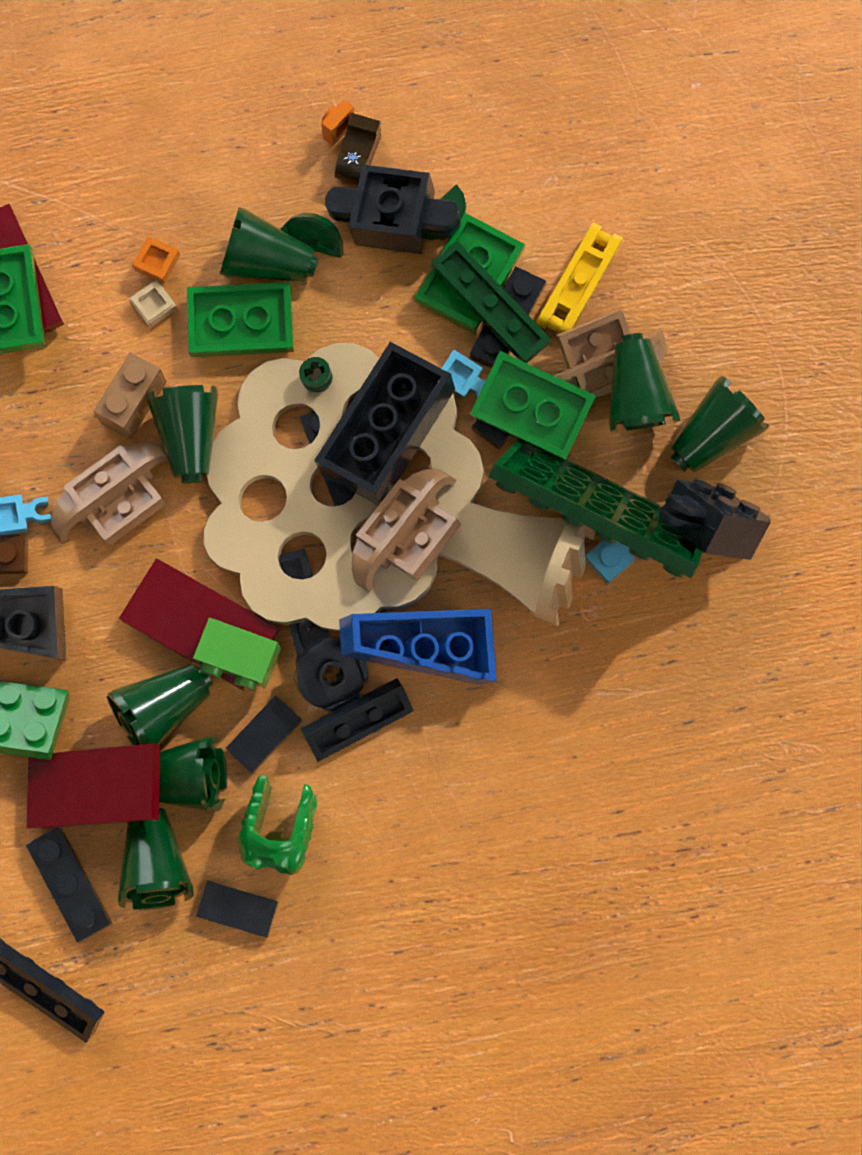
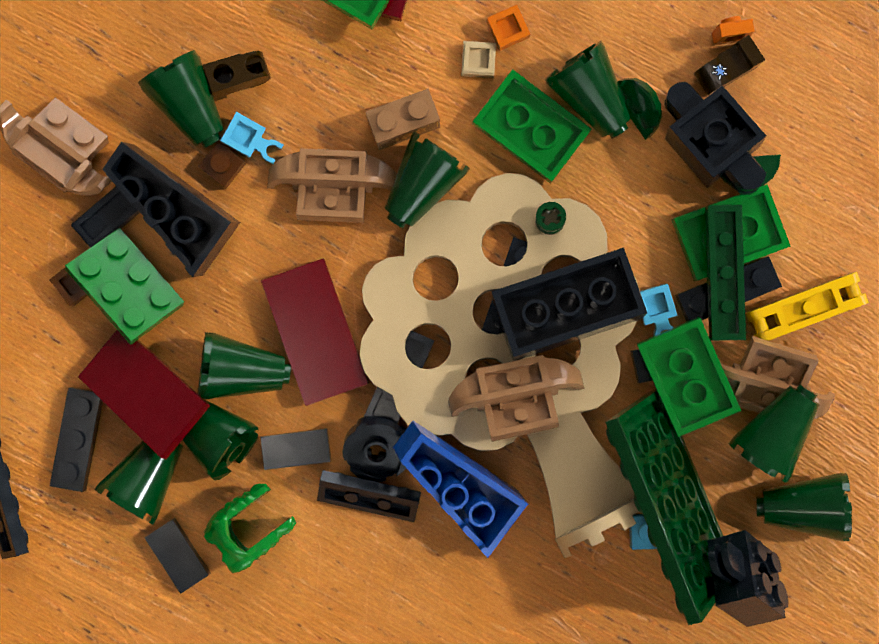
camera: 40 degrees right, 10 degrees up
(237, 654) = (320, 381): bright green brick -> none

